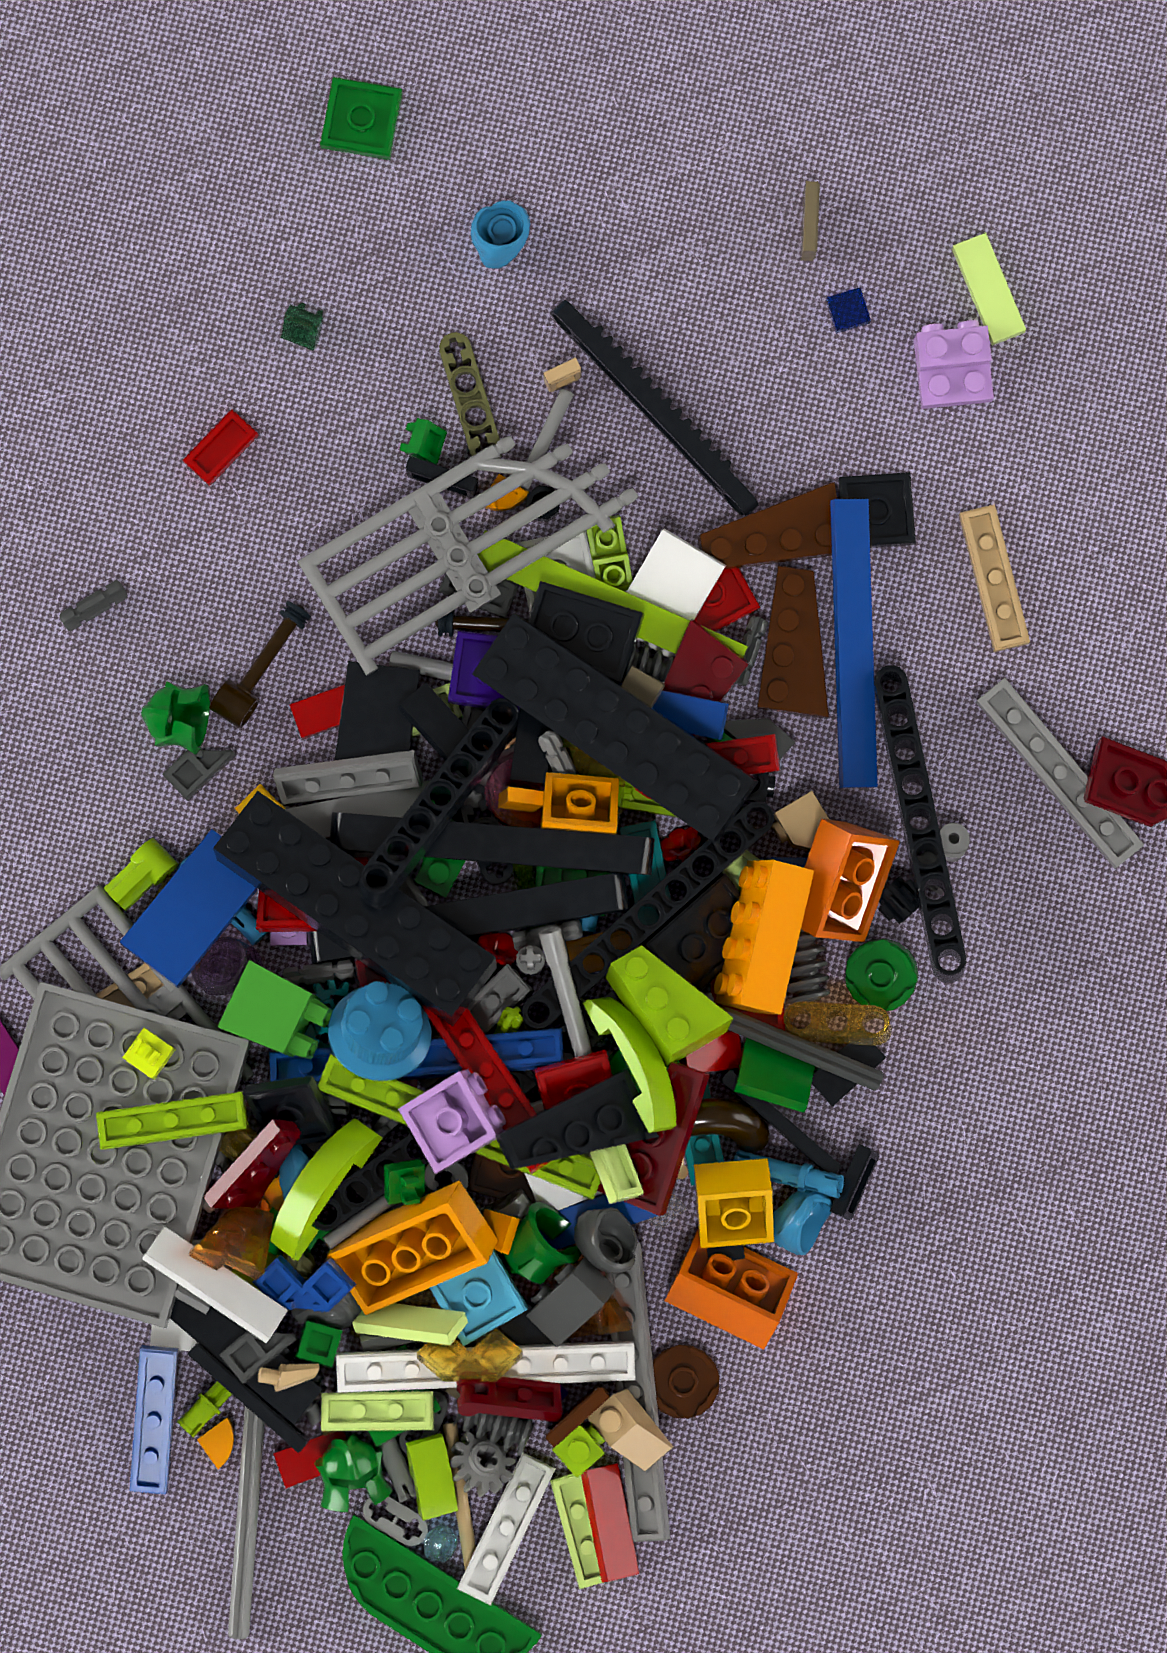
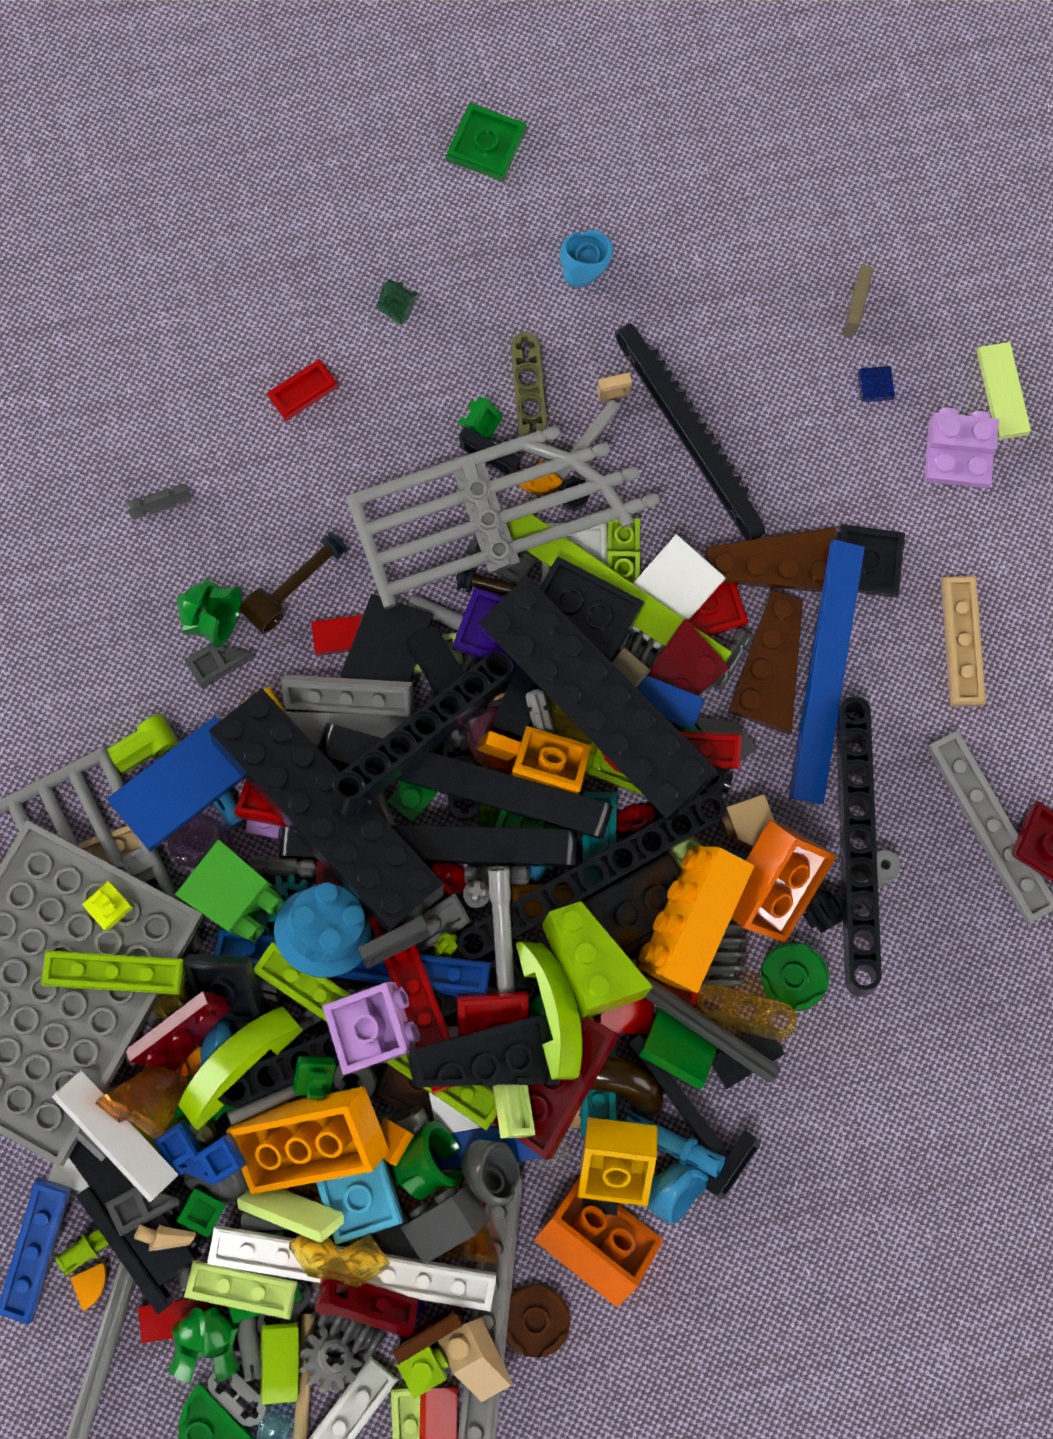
camera: 10 degrees right, 5 degrees down
(457, 1028) = (393, 942): none -> dark grey tile

